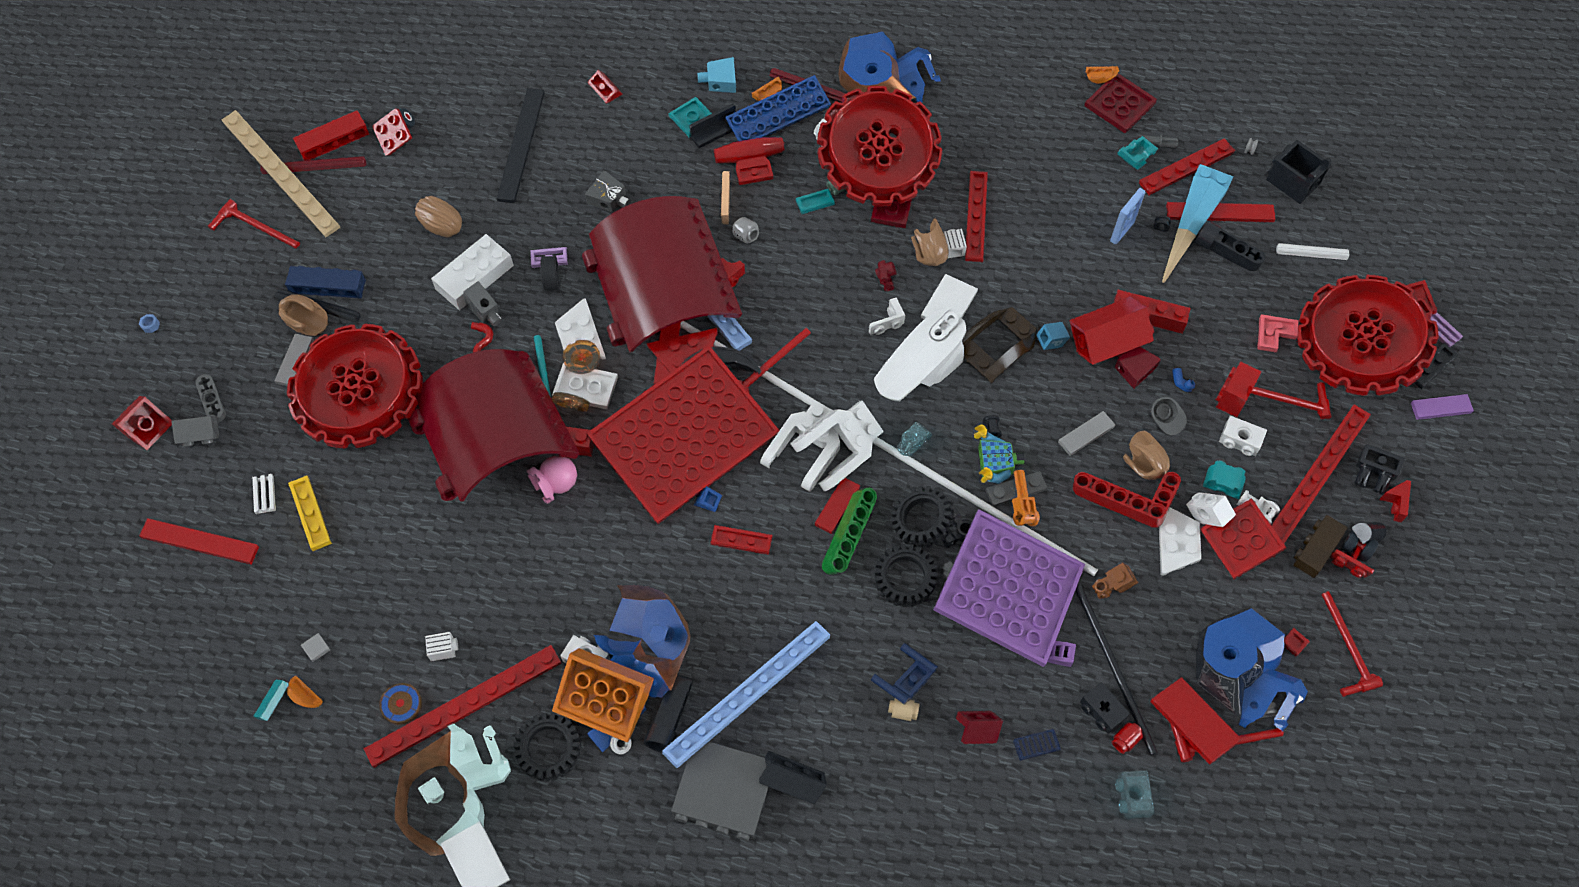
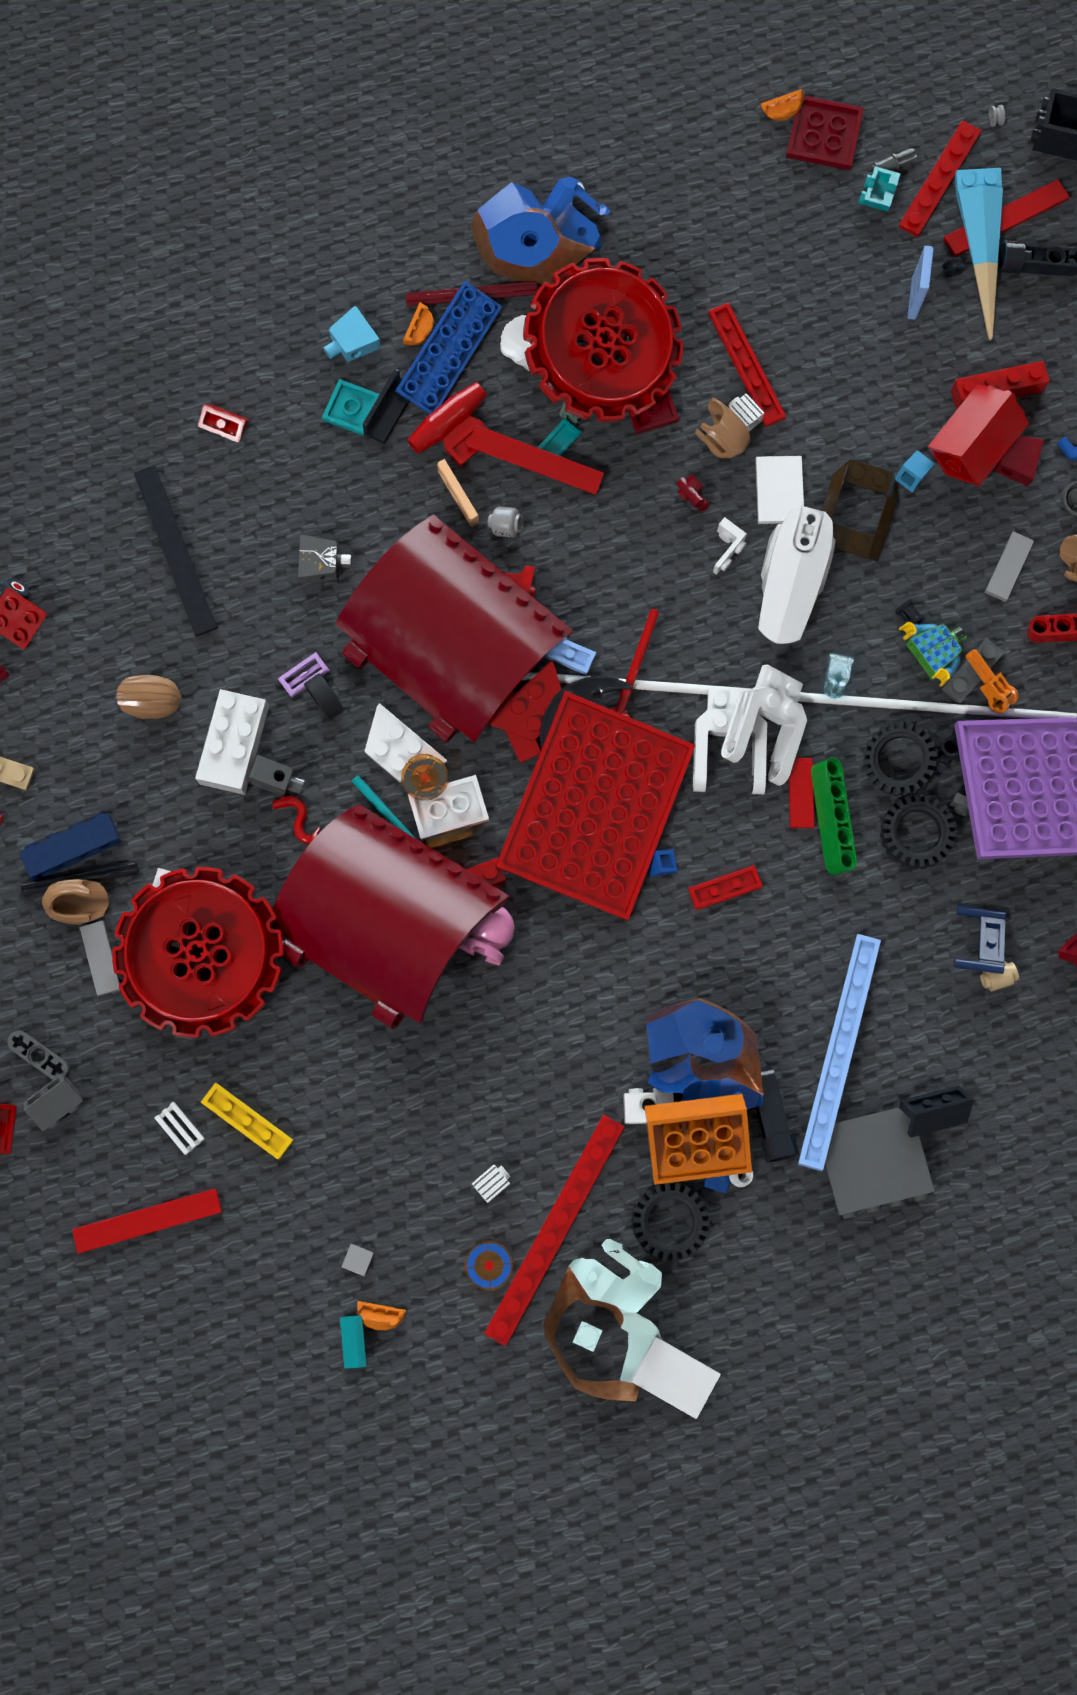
camera: 30 degrees left, 15 degrees up
(791, 202) = (535, 459): none -> red tile

